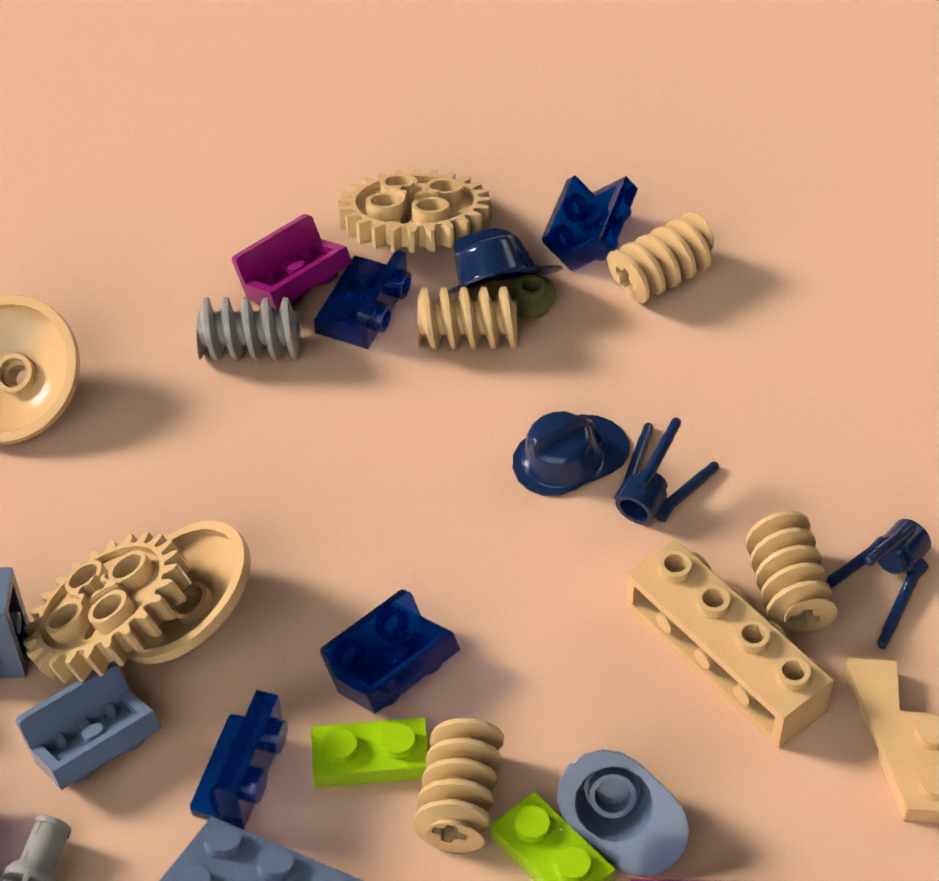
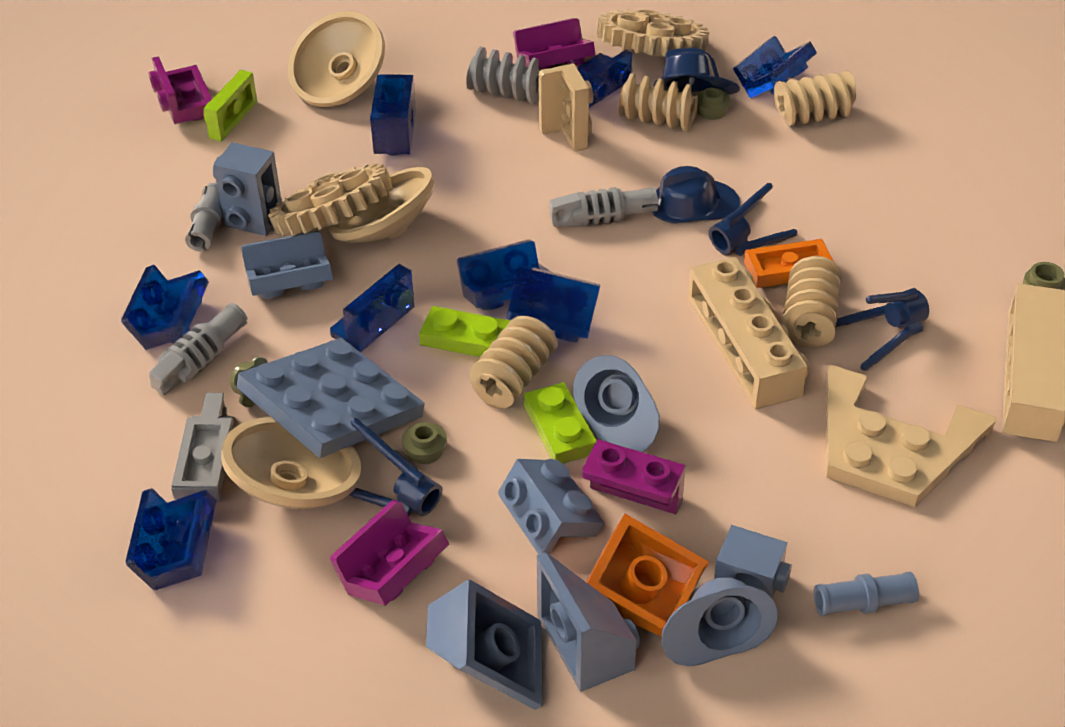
camera: 20 degrees right, 5 degrees down
(127, 437) = (393, 114): none -> clear blue brick
(358, 358) = (565, 104): none -> tan bracket
(462, 501) = (603, 205): none -> light grey hinge
(474, 679) = (556, 300): none -> clear blue bracket
(724, 521) = (773, 263): none -> orange plate

